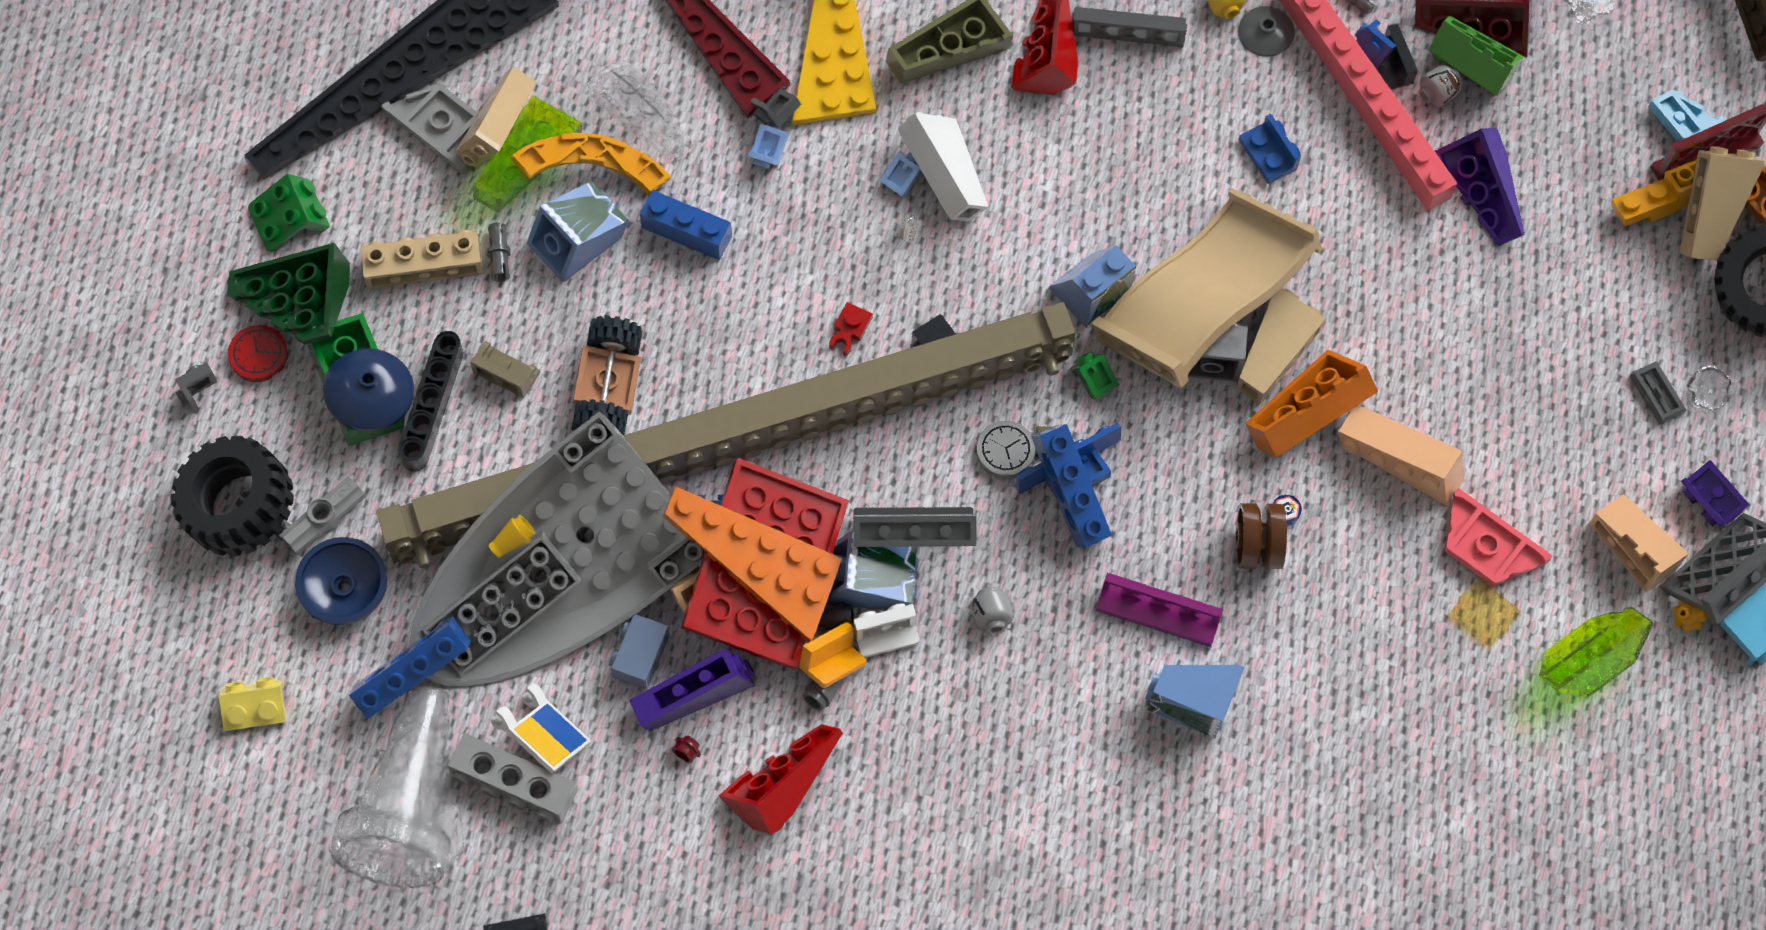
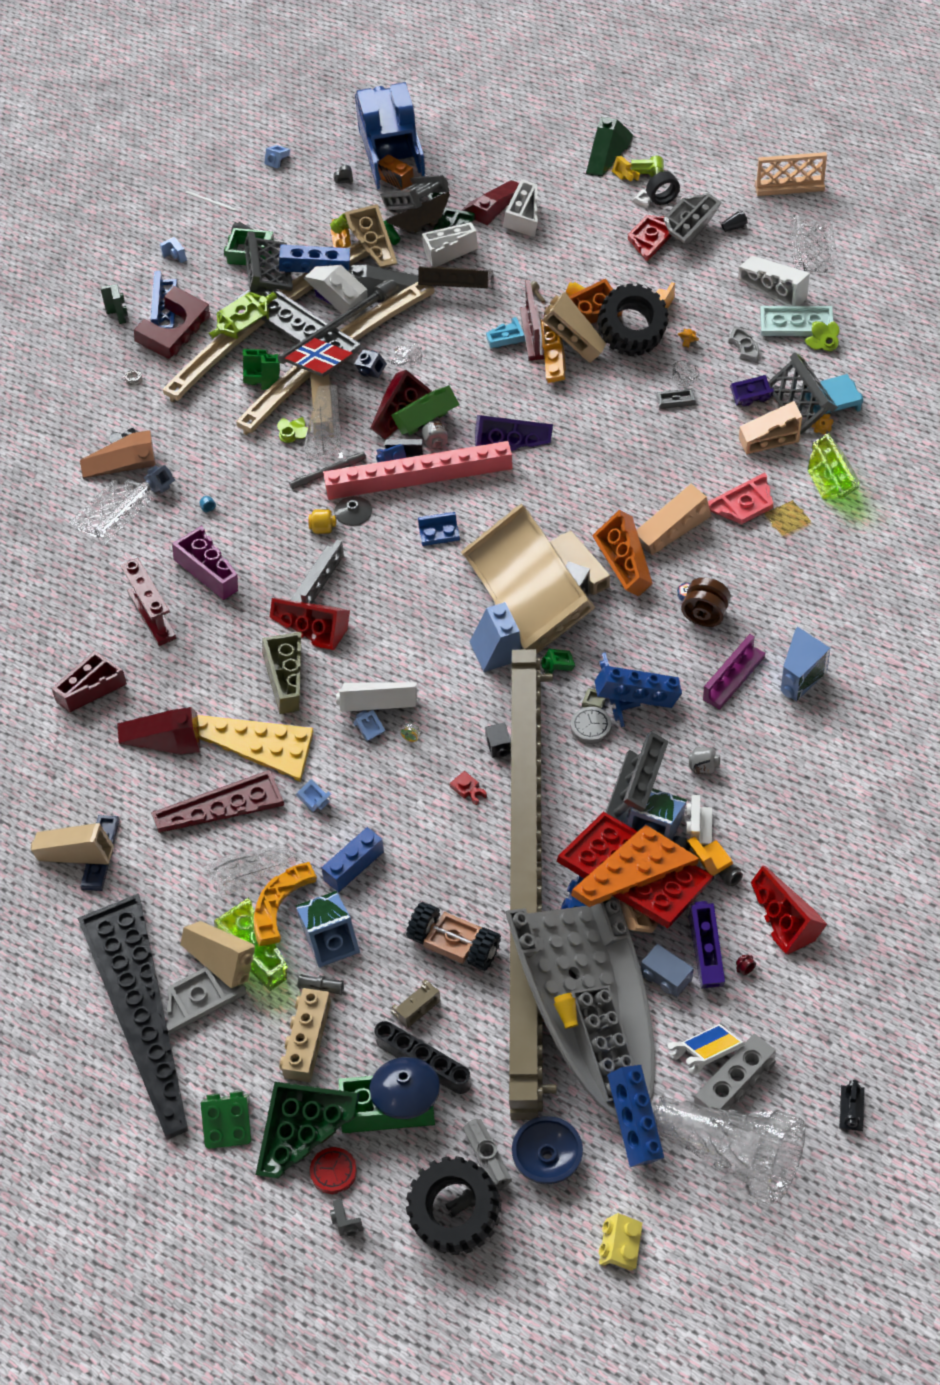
camera: 65 degrees left, 15 degrees down
(777, 109) = (288, 782): dark grey bracket -> none

